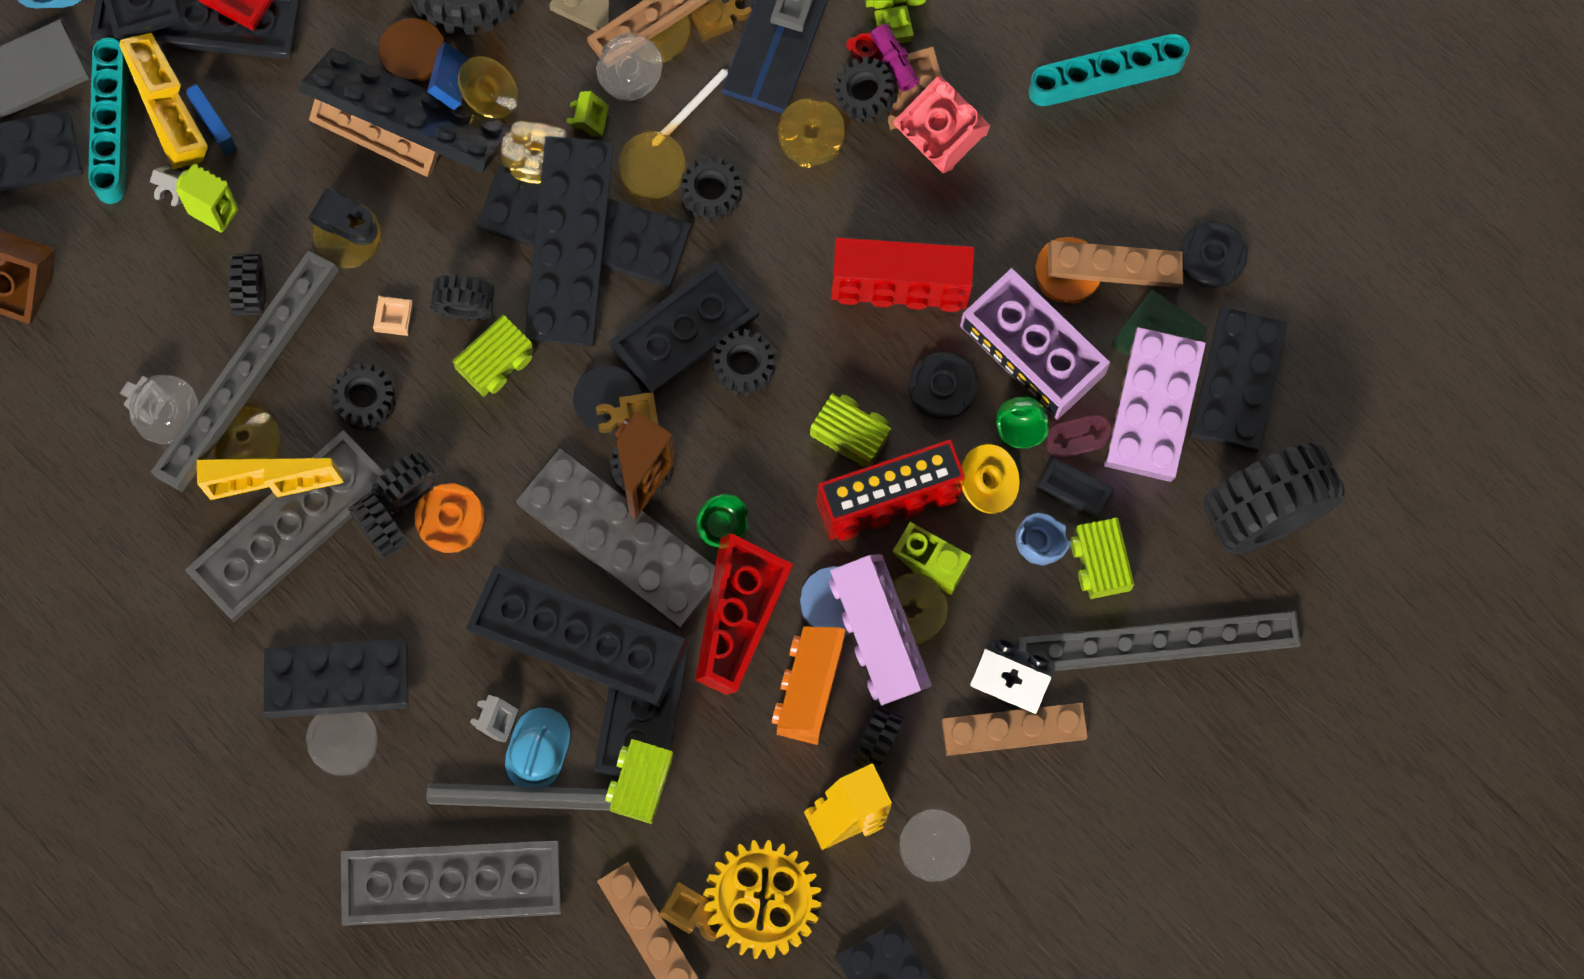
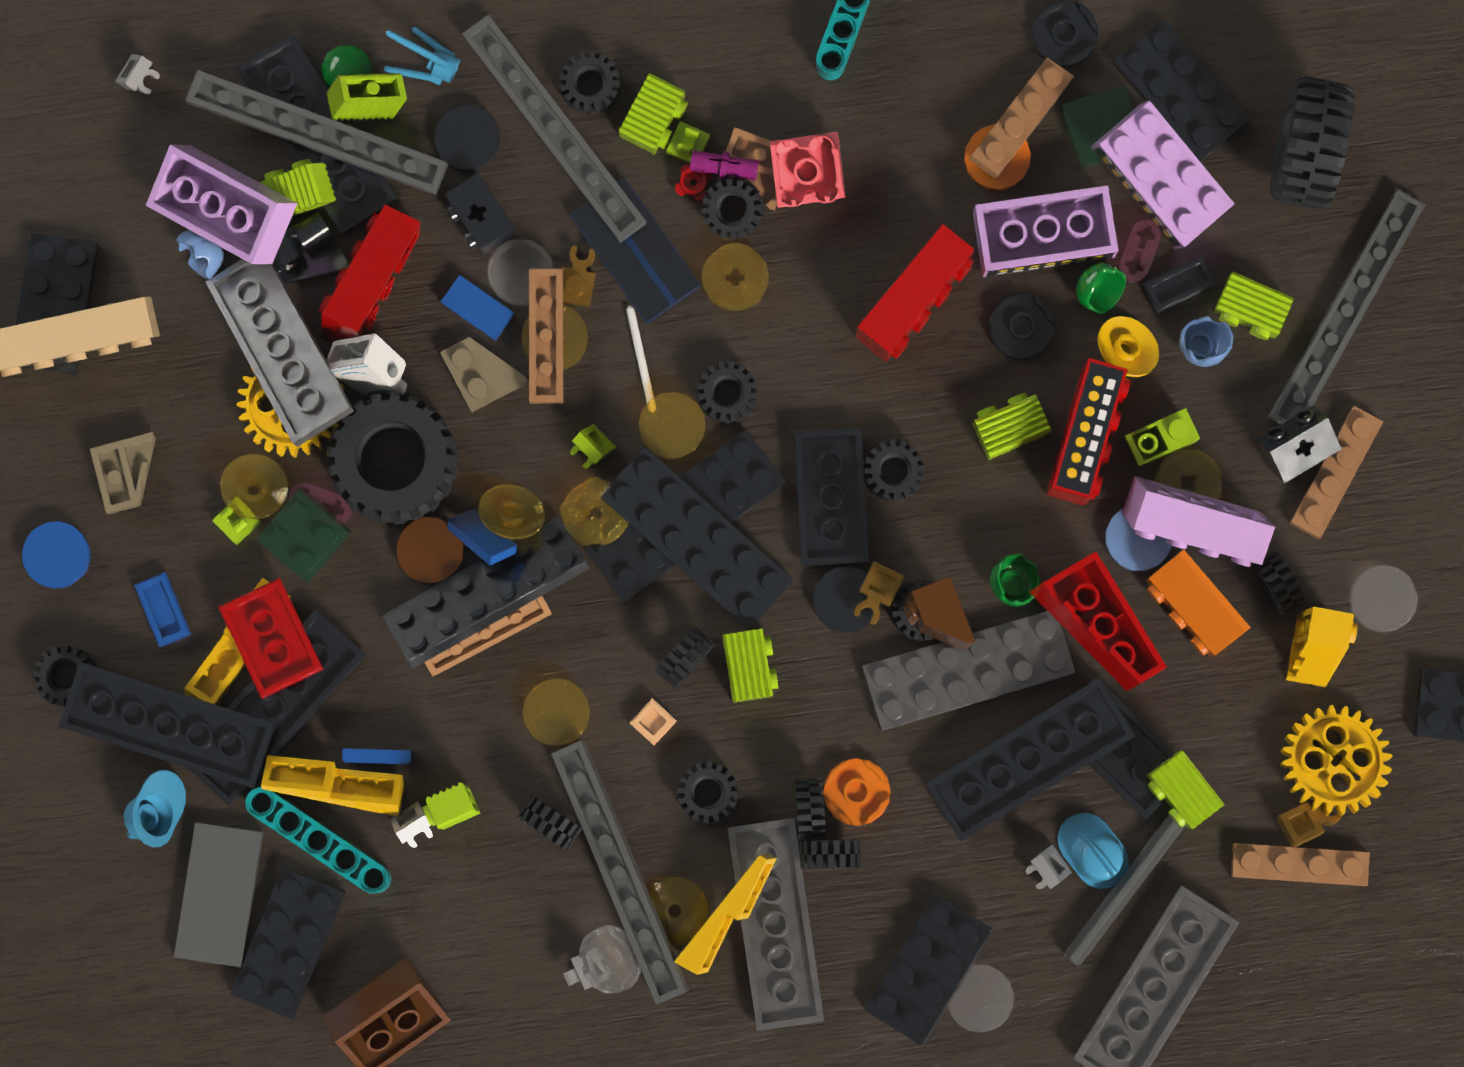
camera: 50 degrees left, 10 degrees up
(340, 215) = (541, 710): black piece -> none
(629, 67) = (578, 385): clear tile -> none

